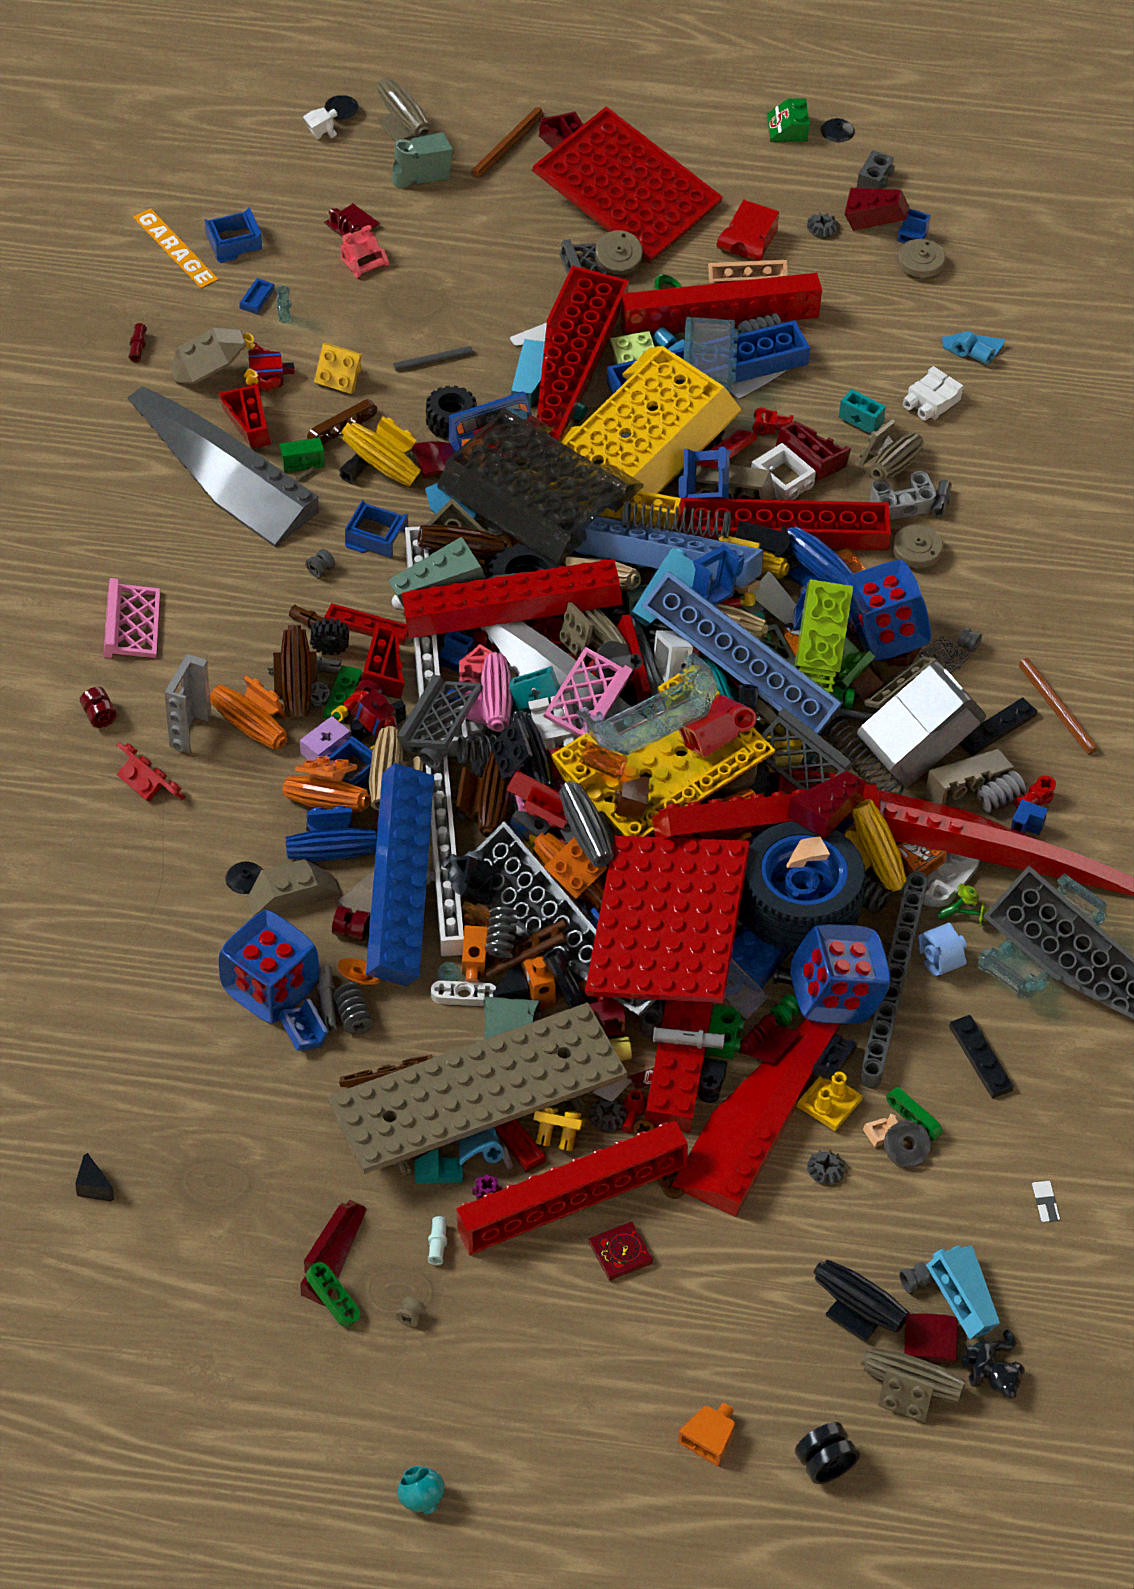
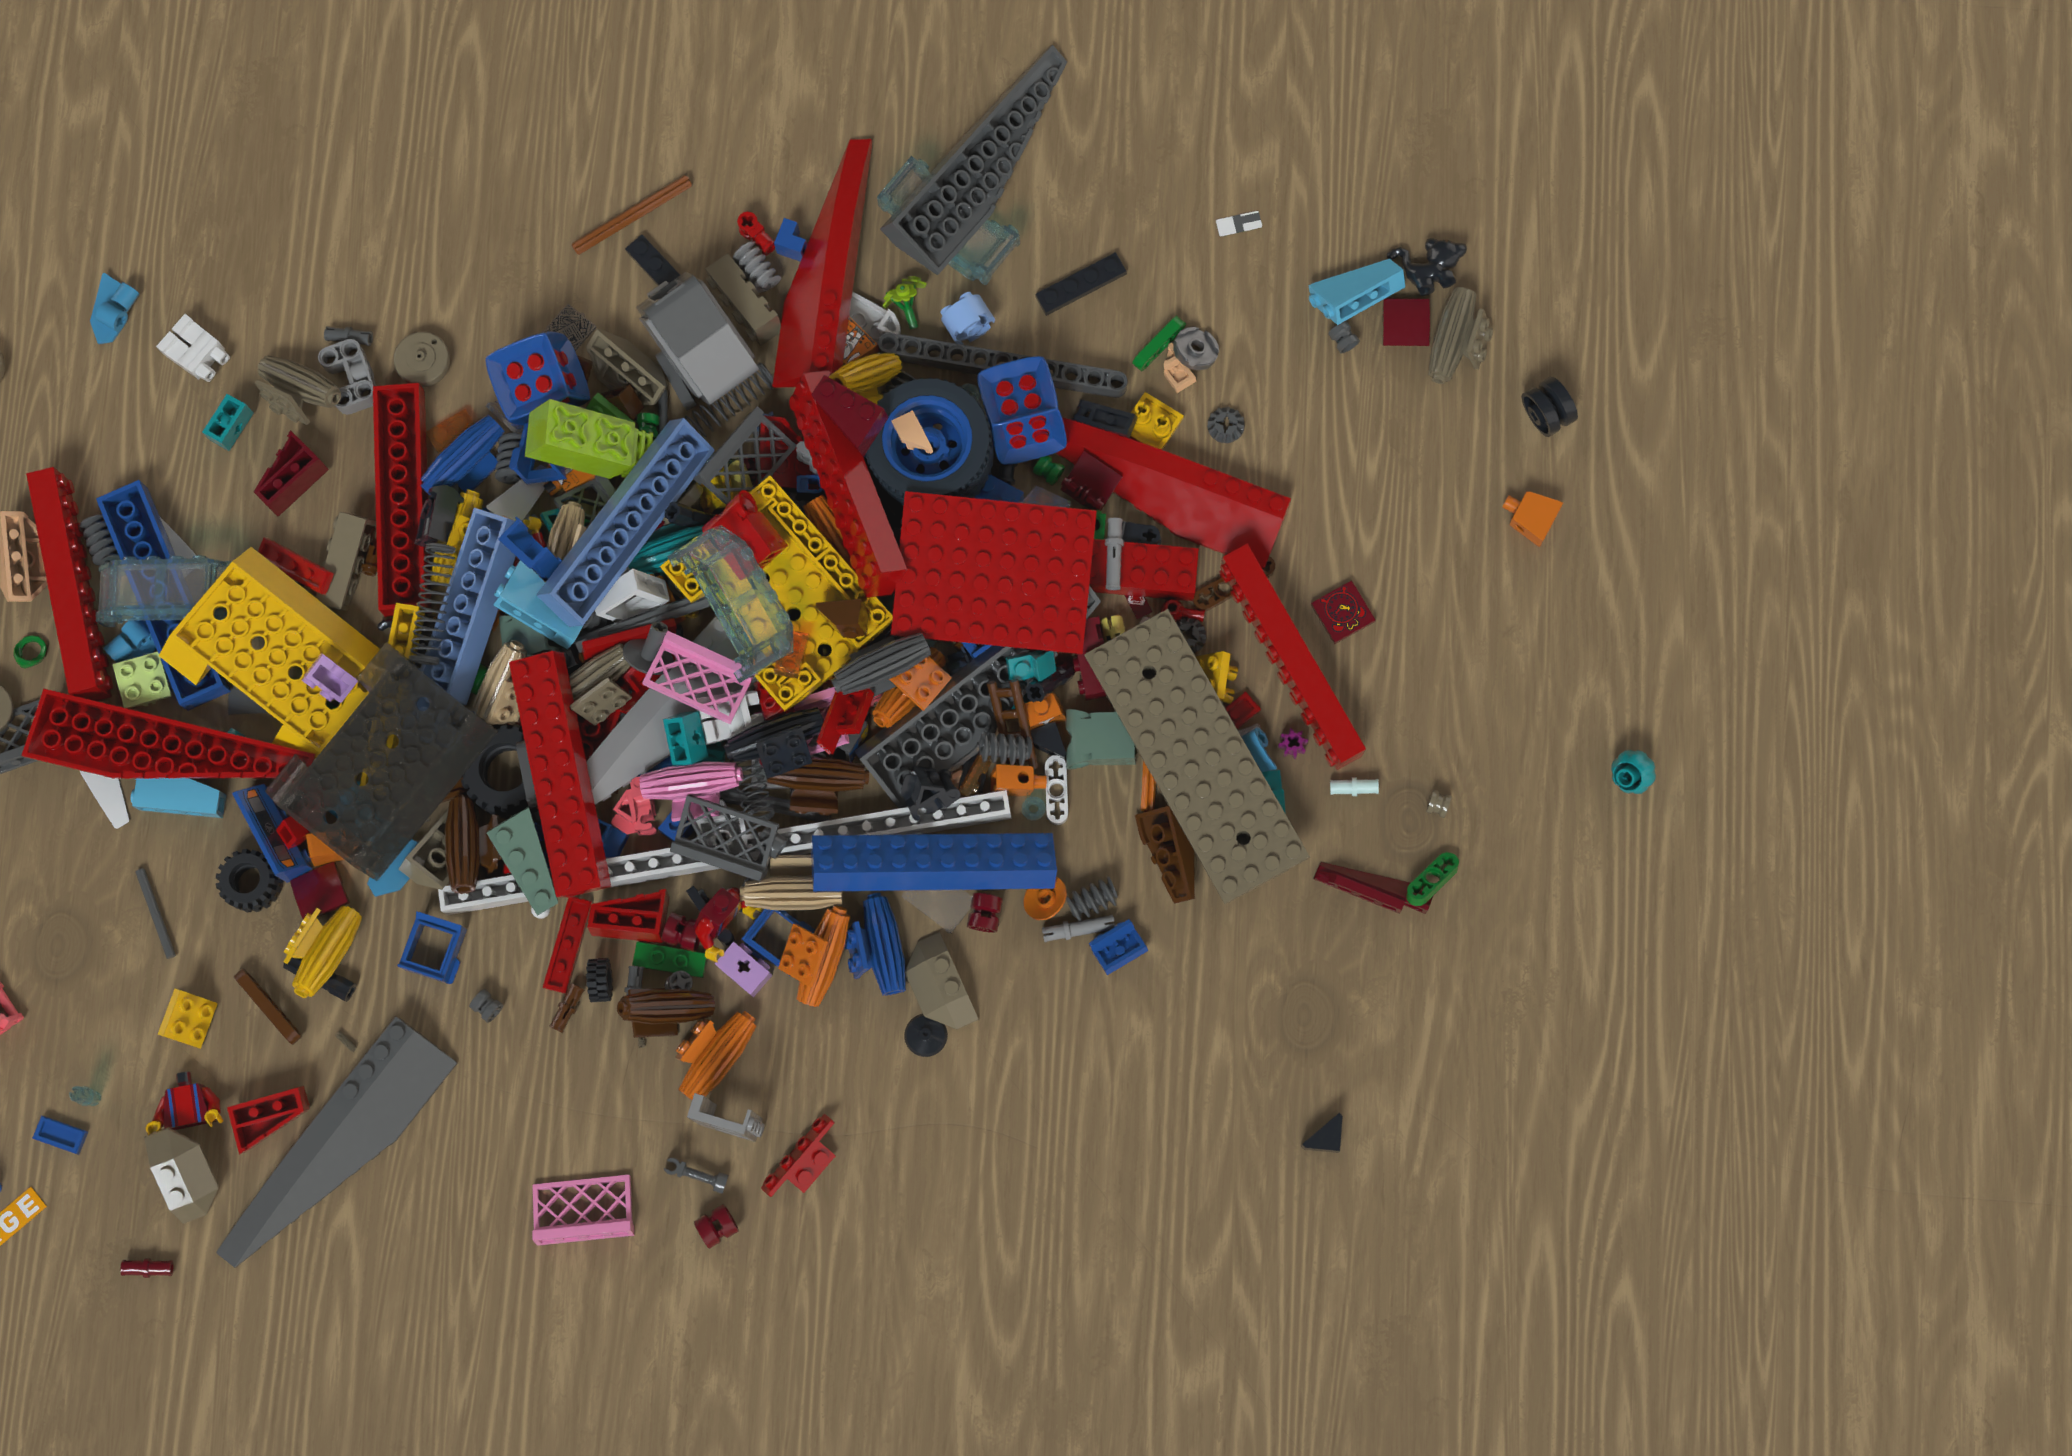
camera: 85 degrees left, 25 degrees up
(137, 714) = (718, 1181): none -> dark grey bar
(268, 965) = (1062, 985): blue piece -> none
(302, 455) = (320, 1047): green hinge -> none
(578, 956) = (1031, 664): none -> teal slope
(618, 449) = (330, 678): none -> lavender cylinder
(687, 483) = (368, 602): blue piece -> none
(770, 421) = (243, 524): red connector -> none
(778, 456) = (326, 527): white window -> none
(859, 1302) = (1385, 382): black plate -> none
(969, 639) = (551, 302): dark grey wheel -> none

